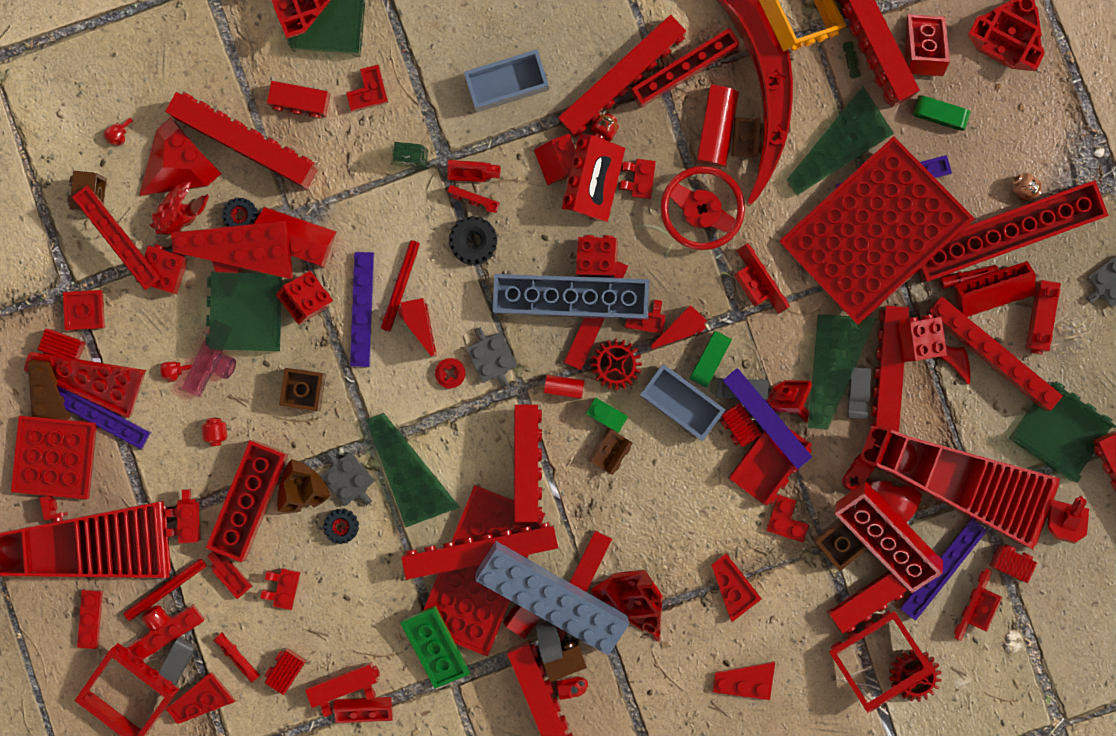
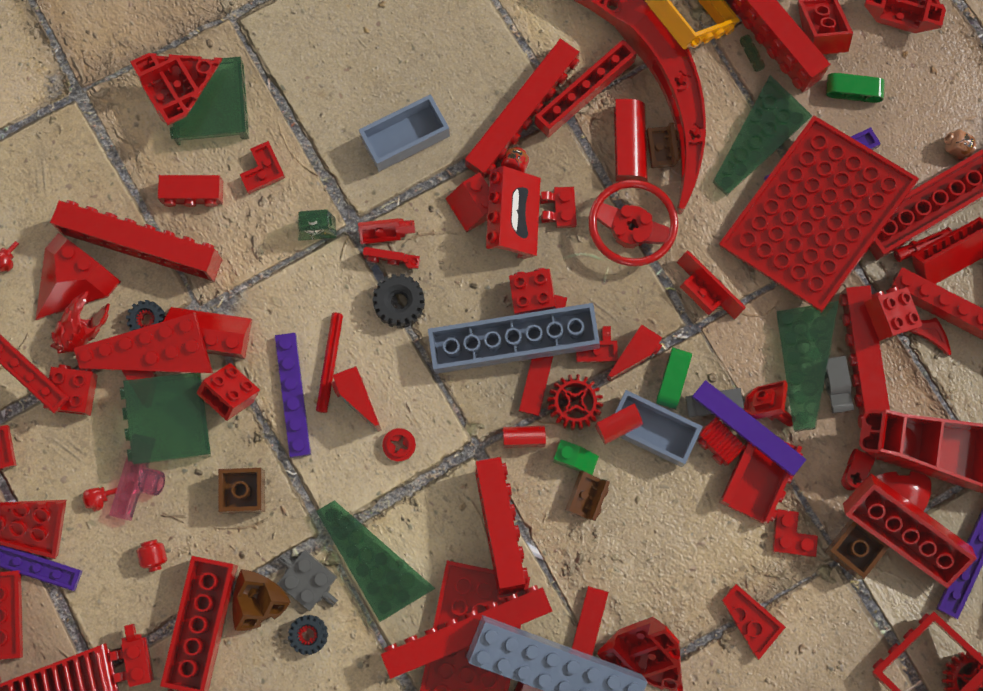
camera: 15 degrees left, 10 degrees down
(491, 357) = (440, 420): dark grey plate -> none
(650, 395) = (619, 424): none -> red brick
(866, 601) = (900, 608): red brick -> none

